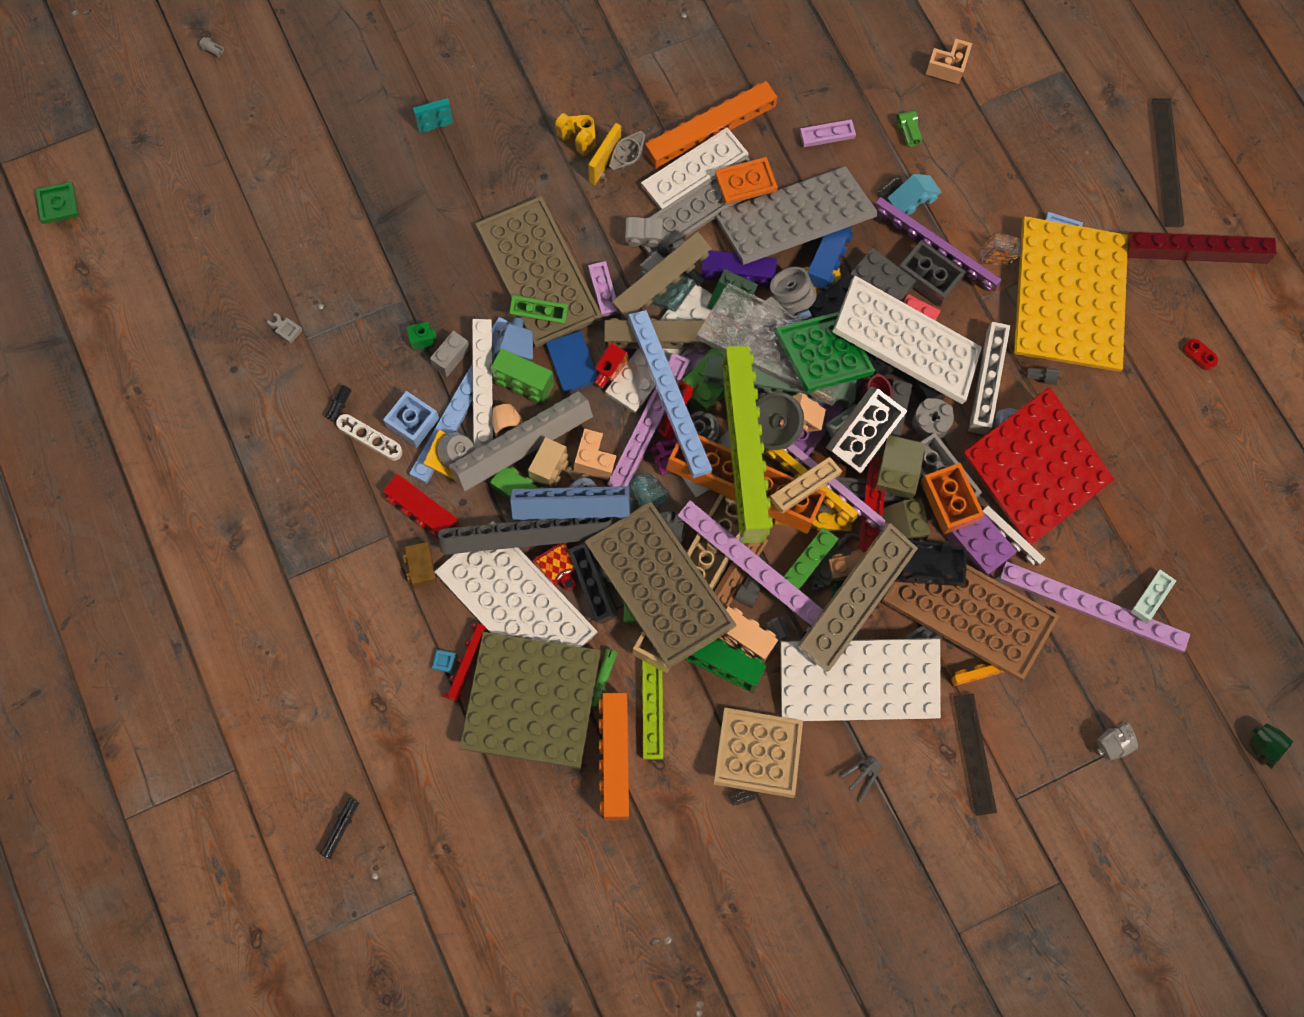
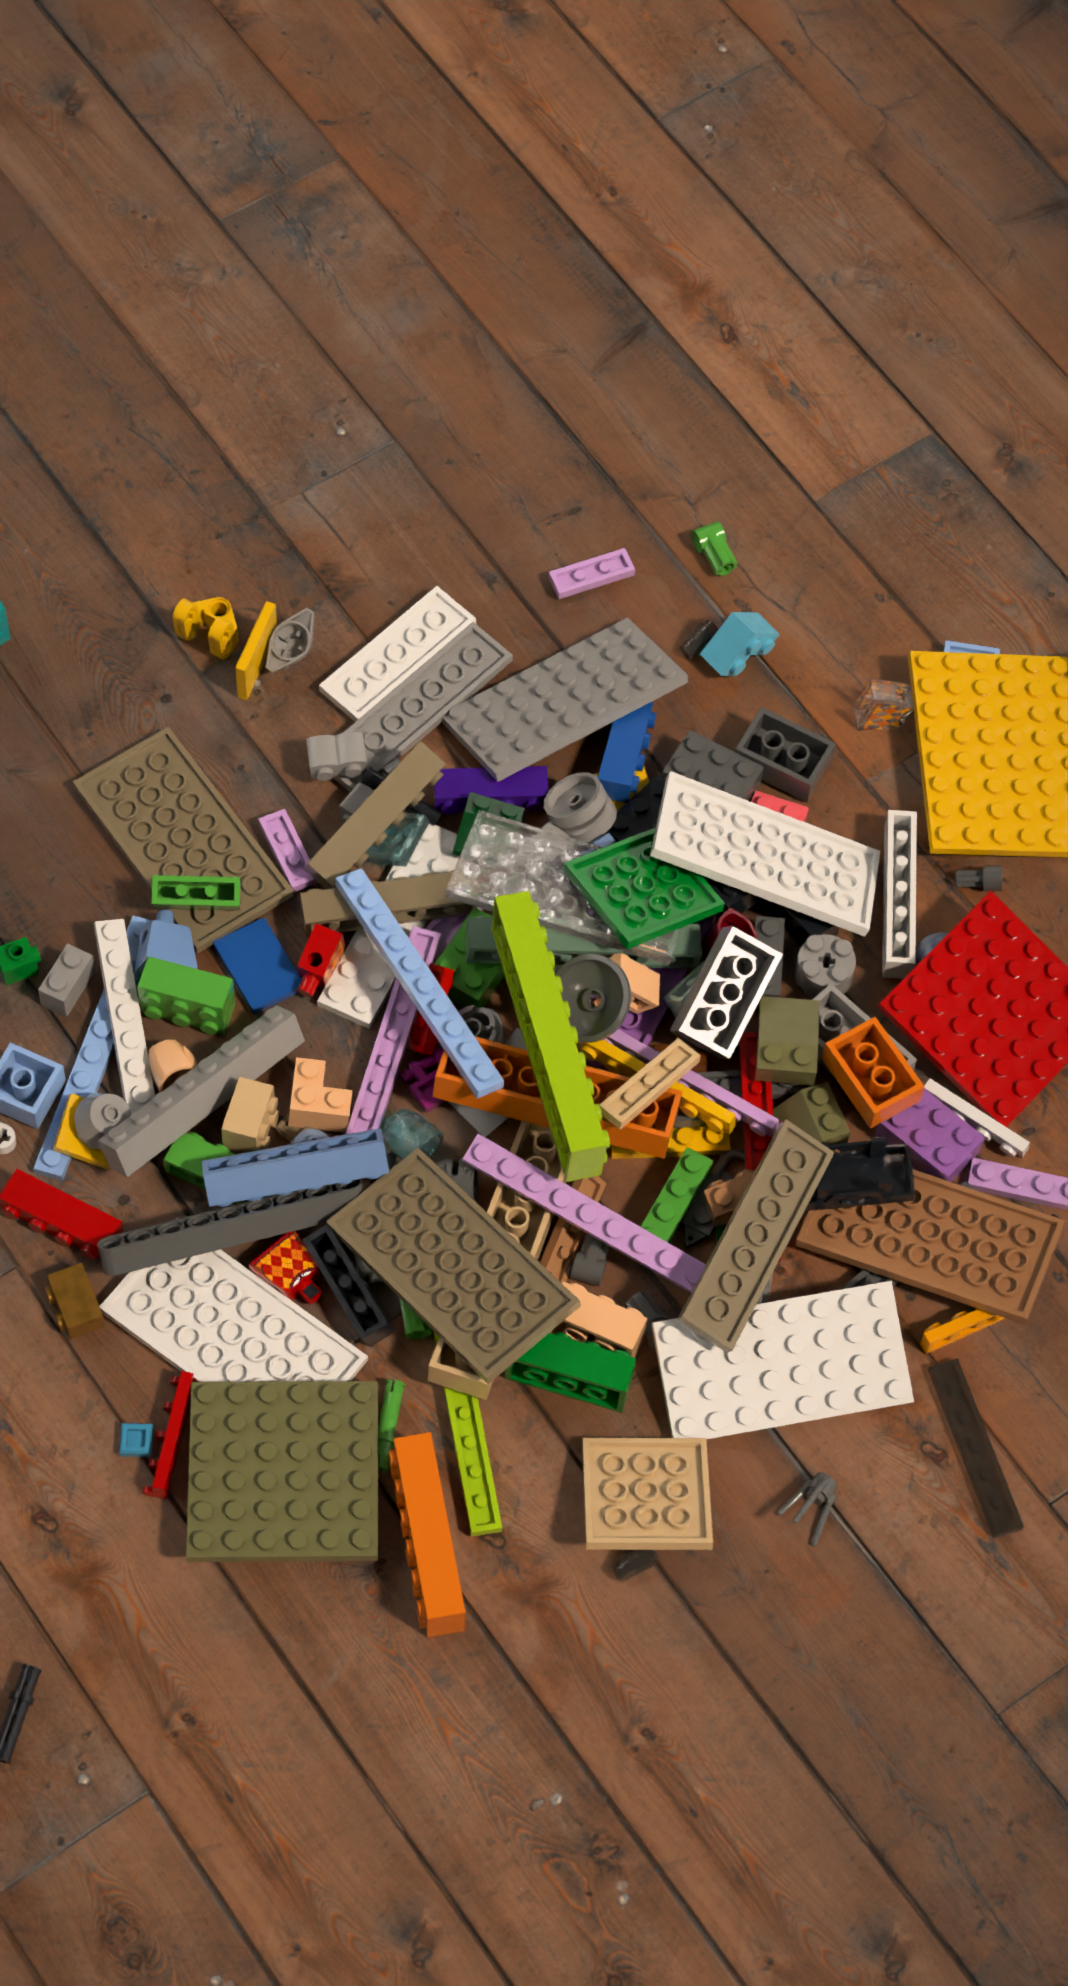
camera: 10 degrees left, 10 degrees down
(702, 127) = (398, 591): orange brick -> none
(746, 180) = (479, 659): orange plate -> none
(916, 230) = (755, 696): medium lavender plate -> none
(949, 65) = (760, 448): light nougat brick -> none

